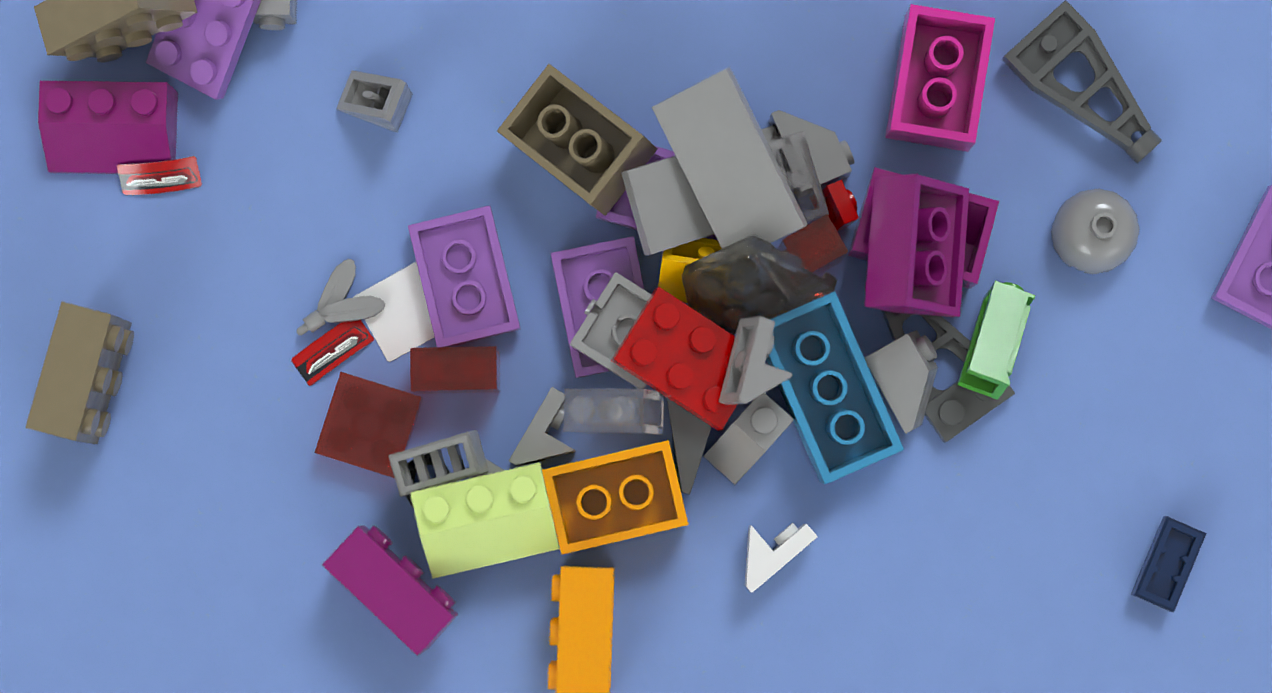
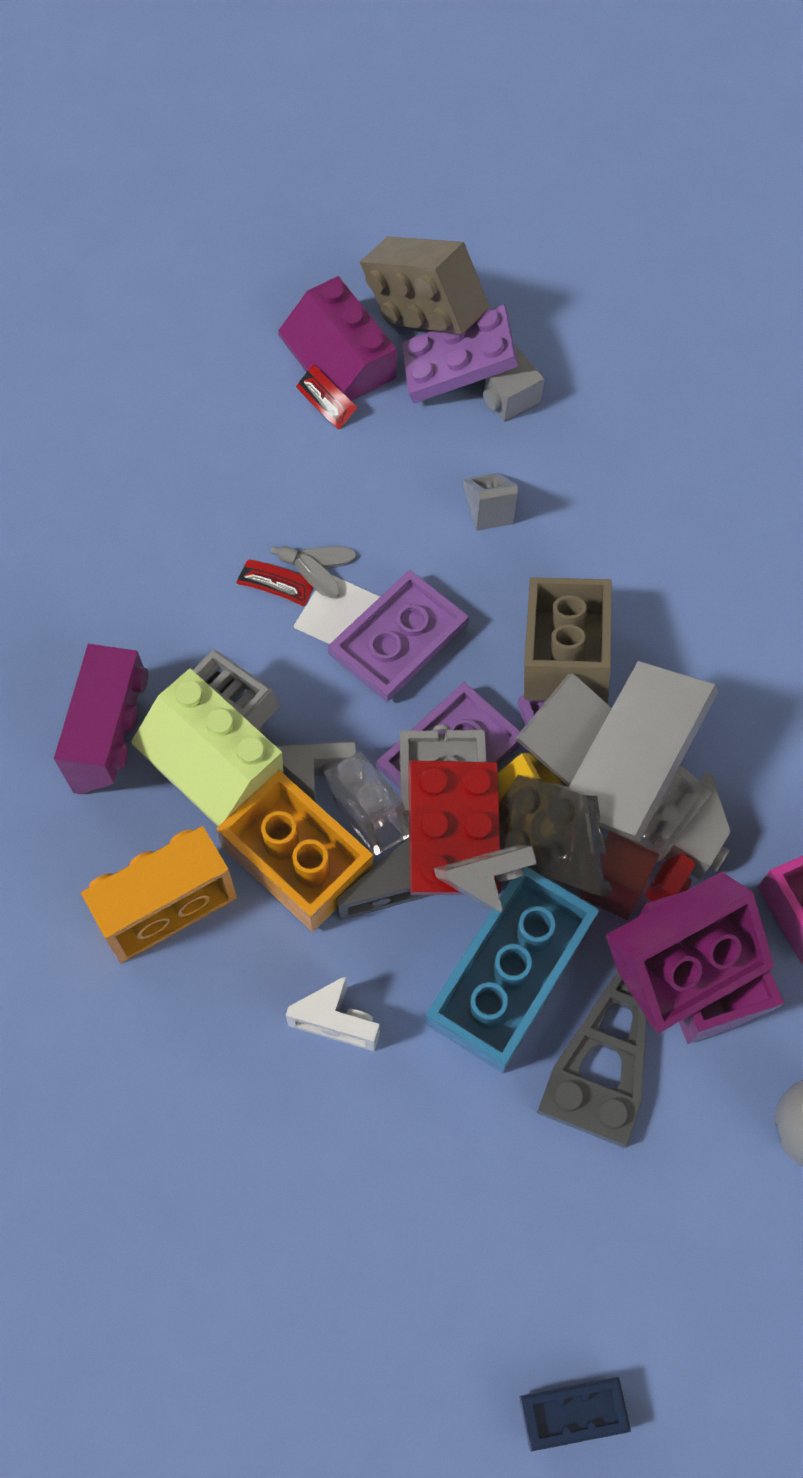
camera: 50 degrees right, 20 degrees down
(80, 374) = (137, 415): dark tan brick -> none
(367, 423) = (236, 629): clear red plate -> none
(455, 370) = (319, 668): clear red brick -> none
(748, 438) = (423, 932): light grey slope -> none
(906, 376) = (570, 1028): light grey slope -> none
(996, 339) = (662, 1089): window -> none

